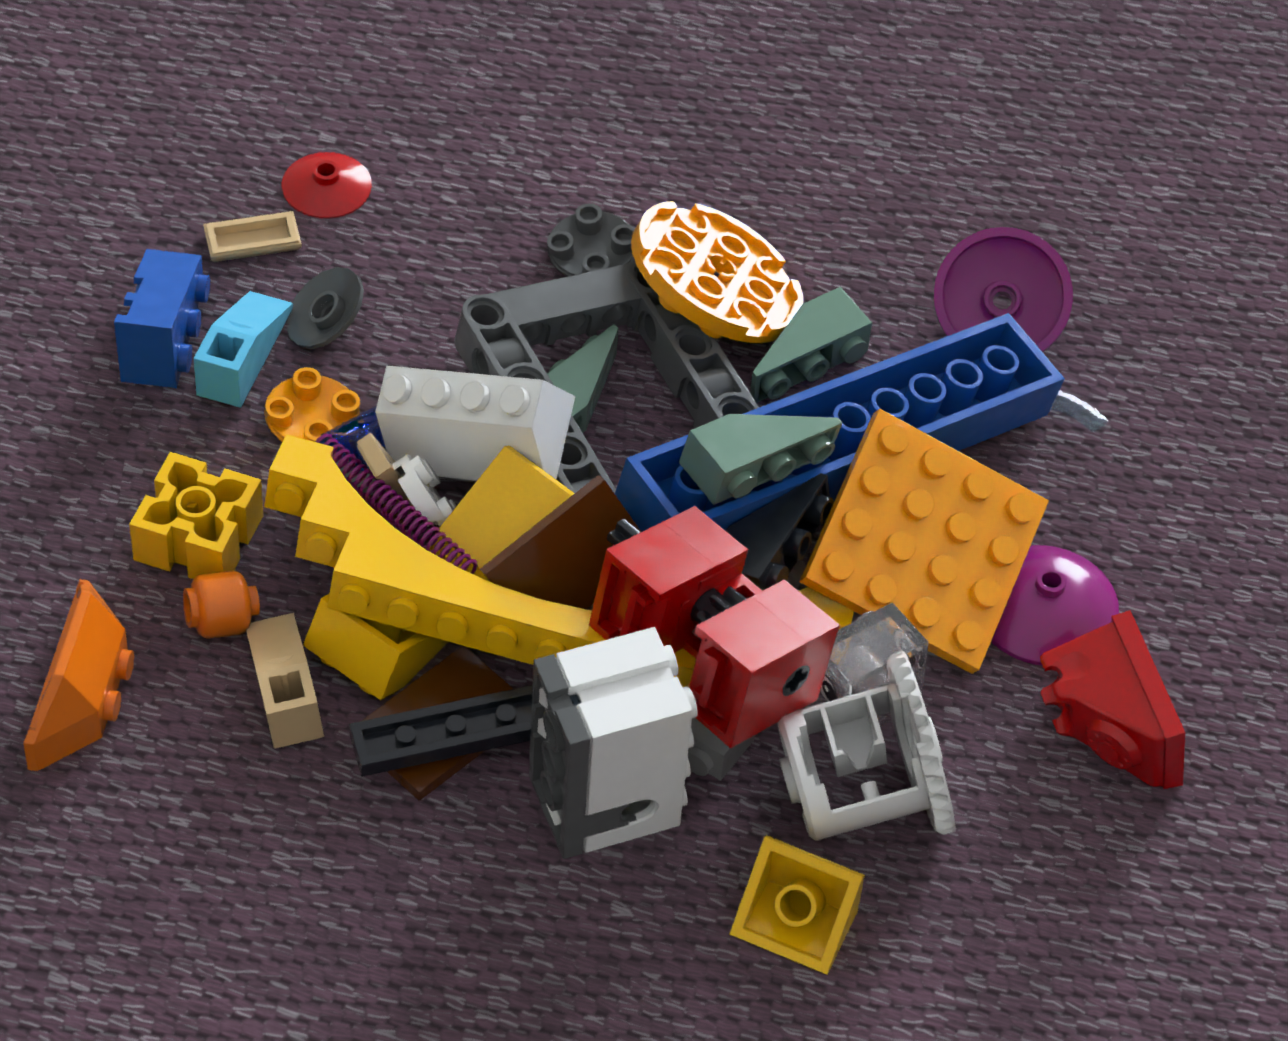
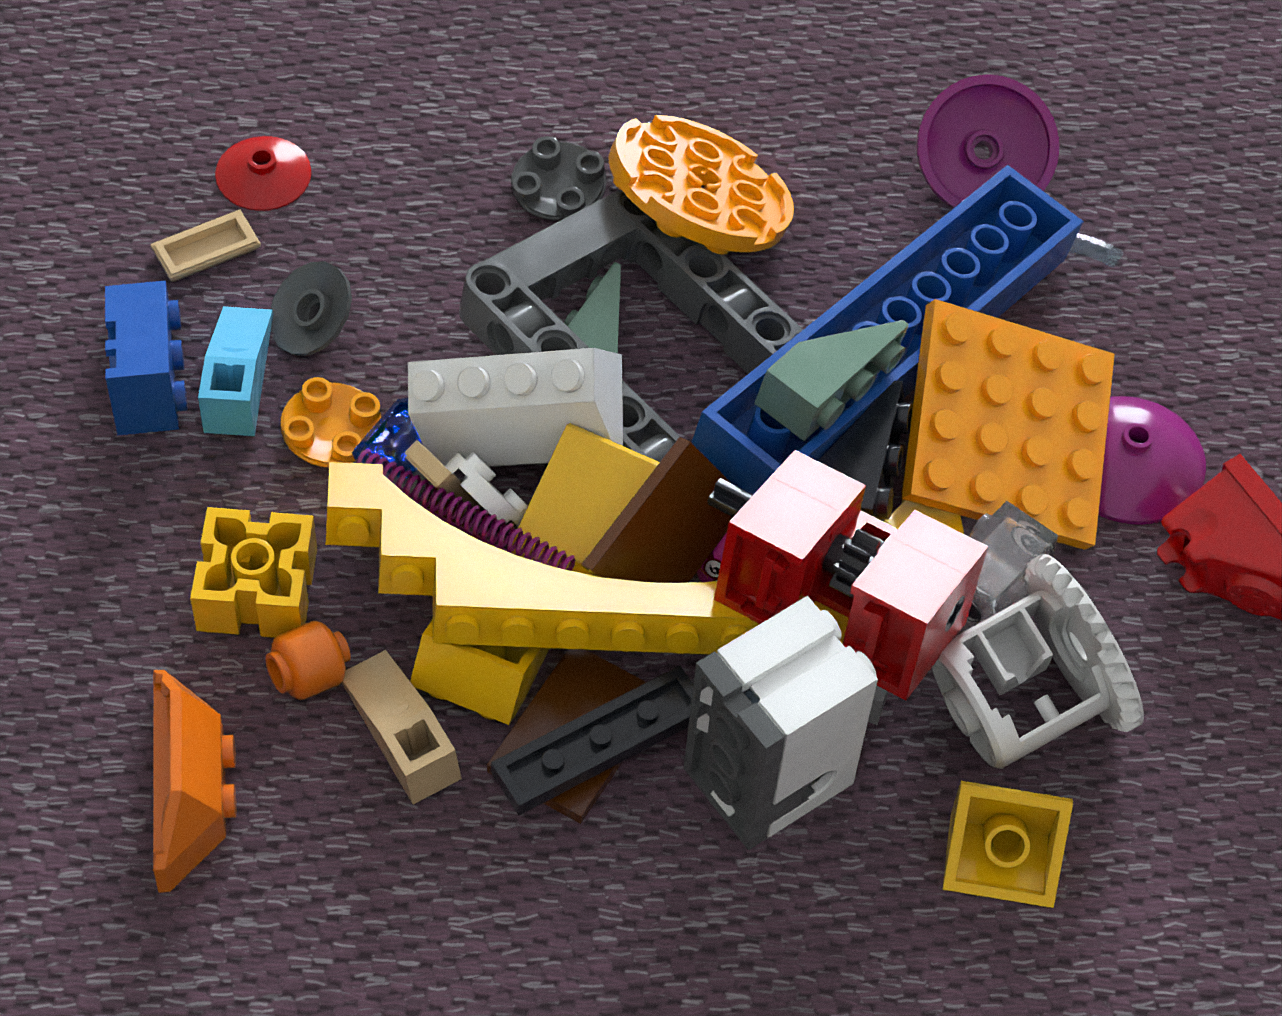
camera: 15 degrees left, 5 degrees up
(815, 339) = (821, 227): sand green slope -> none

